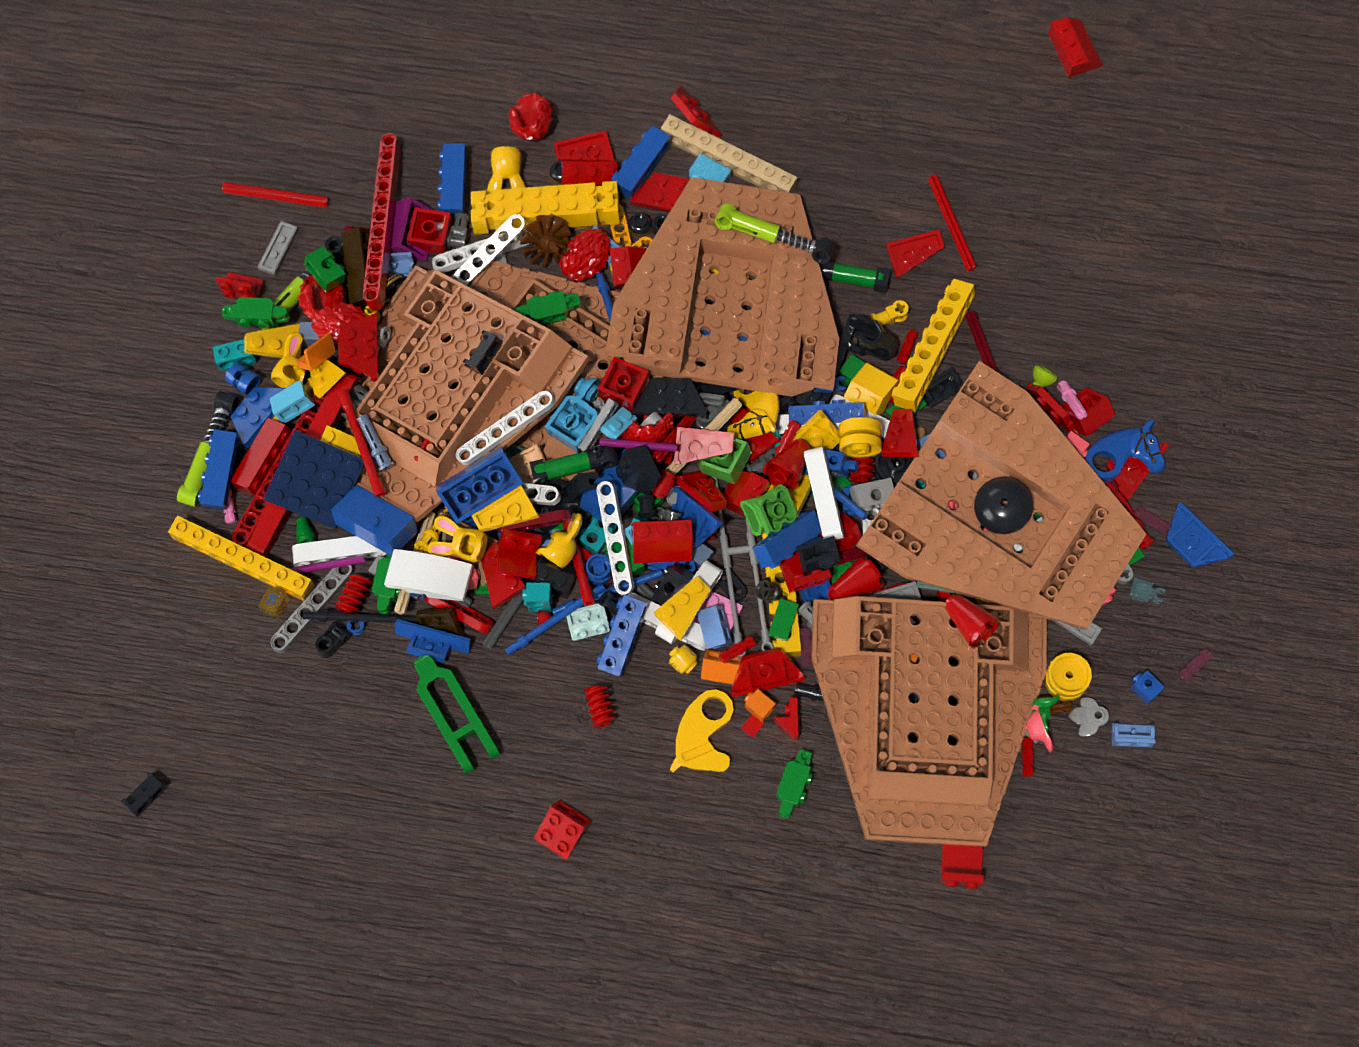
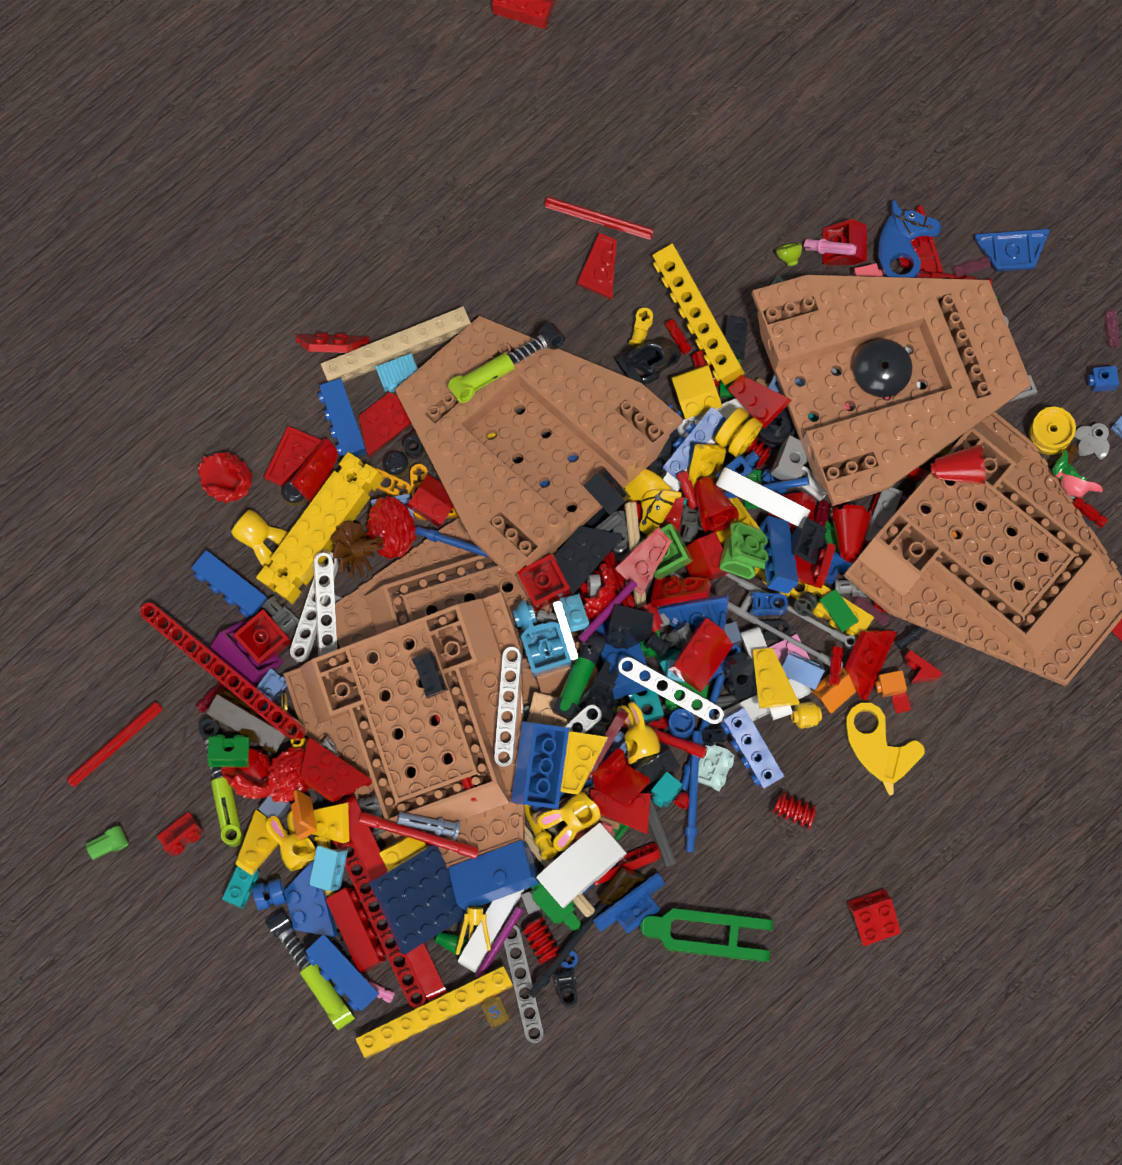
camera: 50 degrees left, 5 degrees up
(201, 245) = (112, 841): none -> bright green piece
(255, 312) = (221, 839): green hinge -> none
(278, 248) = (167, 778): light grey tile -> none
(333, 532) = (473, 917): none -> yellow plant
(550, 307) = (424, 592): green hinge -> none
(732, 375) = (607, 491): none -> black hinge
(744, 561) = (767, 603): none -> blue piece
(793, 782) = (976, 707): green hinge -> none
(850, 369) = (666, 392): green brick -> none
(856, 275) = (602, 314): green piece -> none
(980, 340) = (722, 277): dark red axle -> none
(1048, 404) = (817, 267): red wing -> none
(1143, 590) = (1024, 320): clear light blue plate -> none

